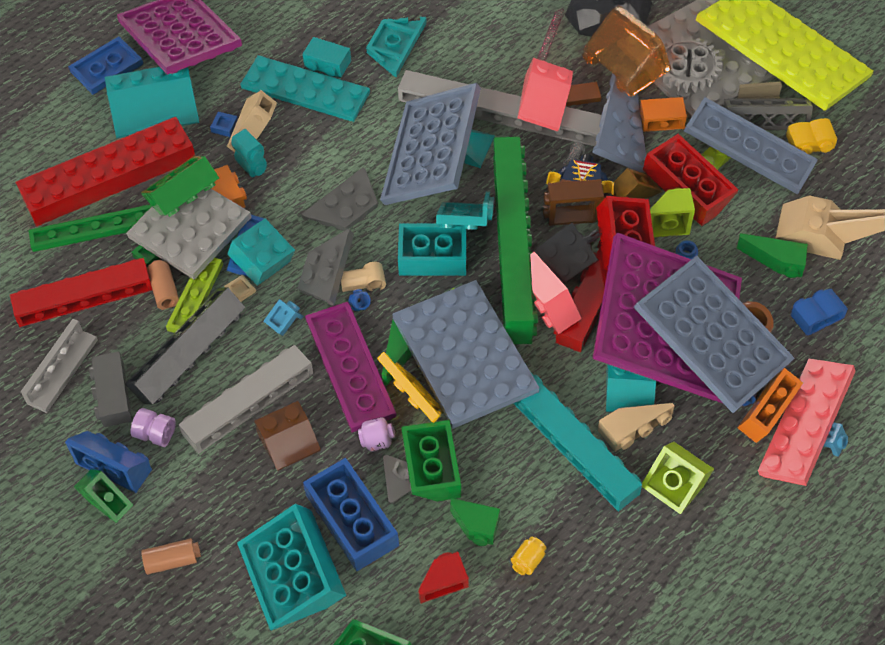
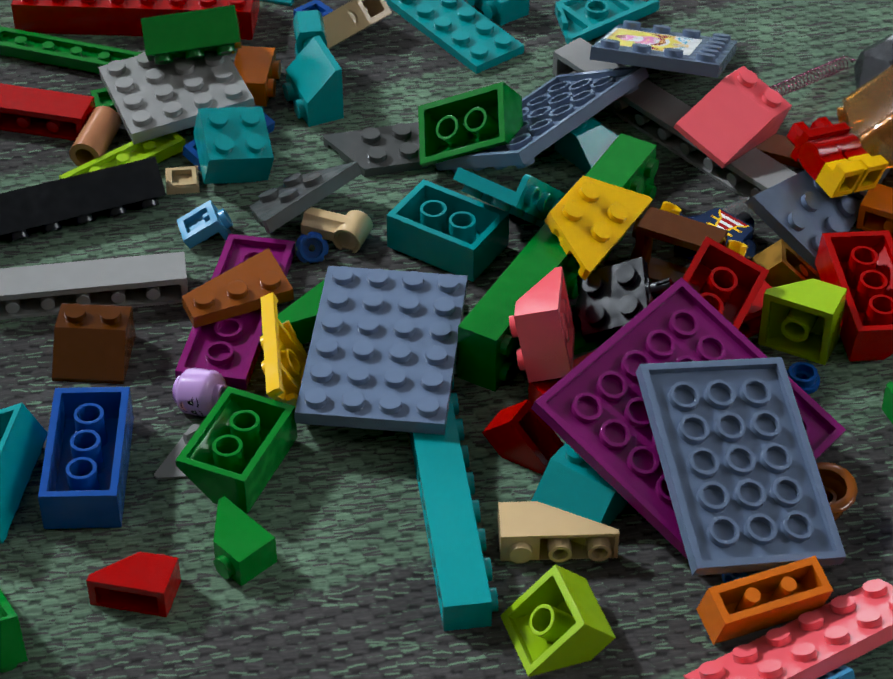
camera: 30 degrees right, 15 degrees down
(273, 180) = (315, 84): none -> teal slope
(346, 354) = (237, 290): none -> dark orange wing
(397, 172) = (468, 123): none -> green slope
(469, 60) = (665, 49): none -> sand blue plate
(527, 210) = (594, 219): none -> yellow wing
(528, 556) = (270, 615): yellow brick -> none
(578, 369) = (523, 437): none -> red slope
(618, 97) = (835, 157): none -> hips

